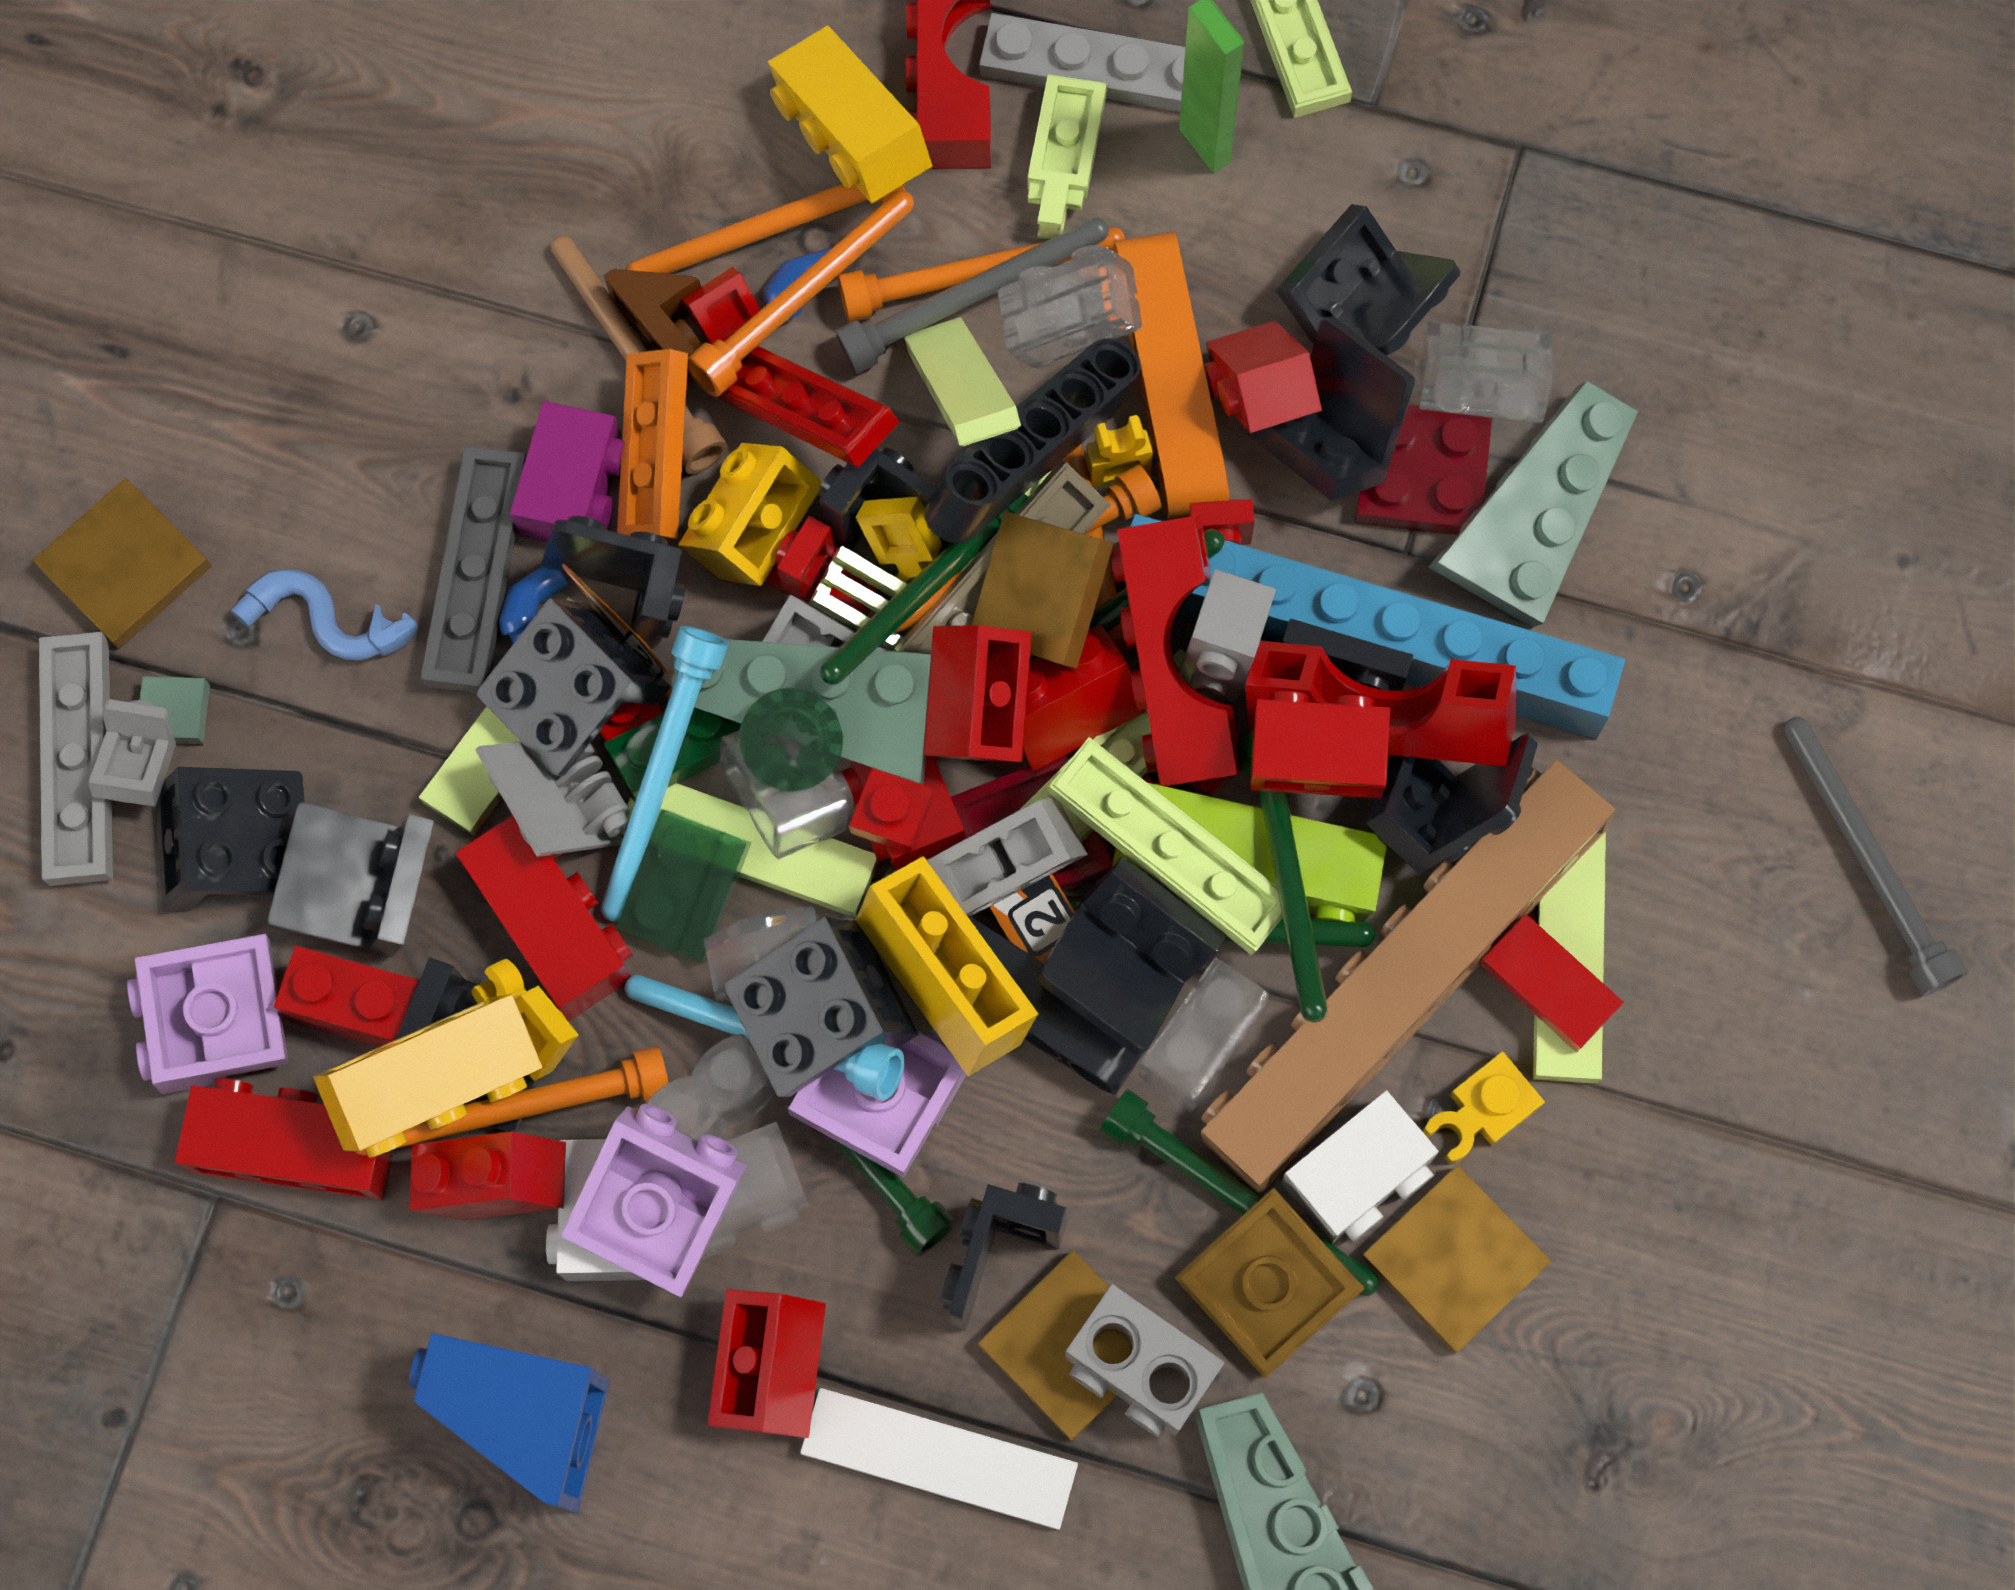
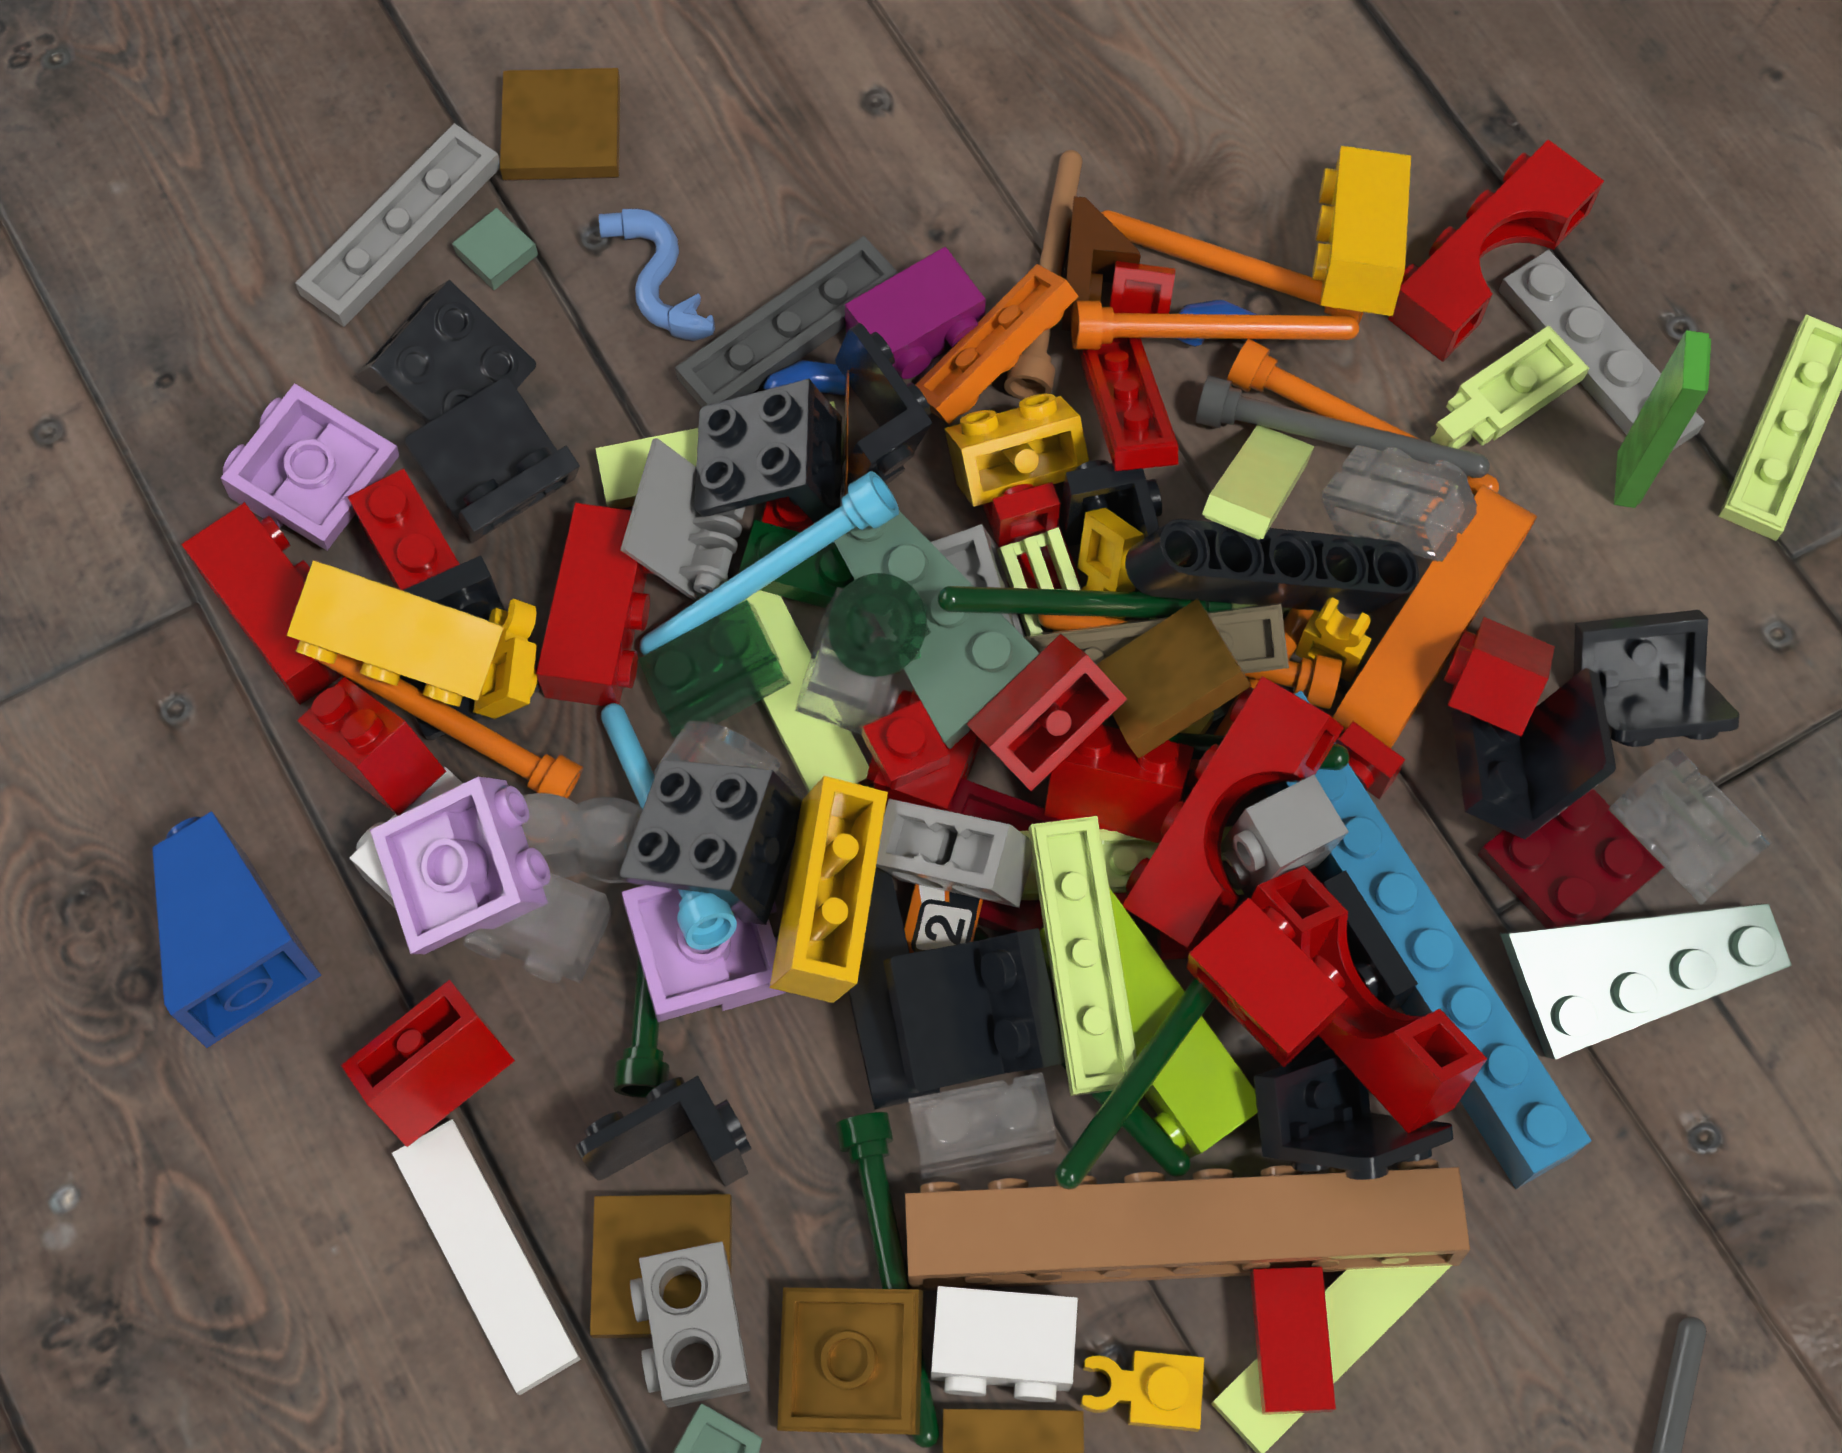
camera: 40 degrees right, 5 degrees down
(133, 752) = (434, 249): light grey bracket -> none

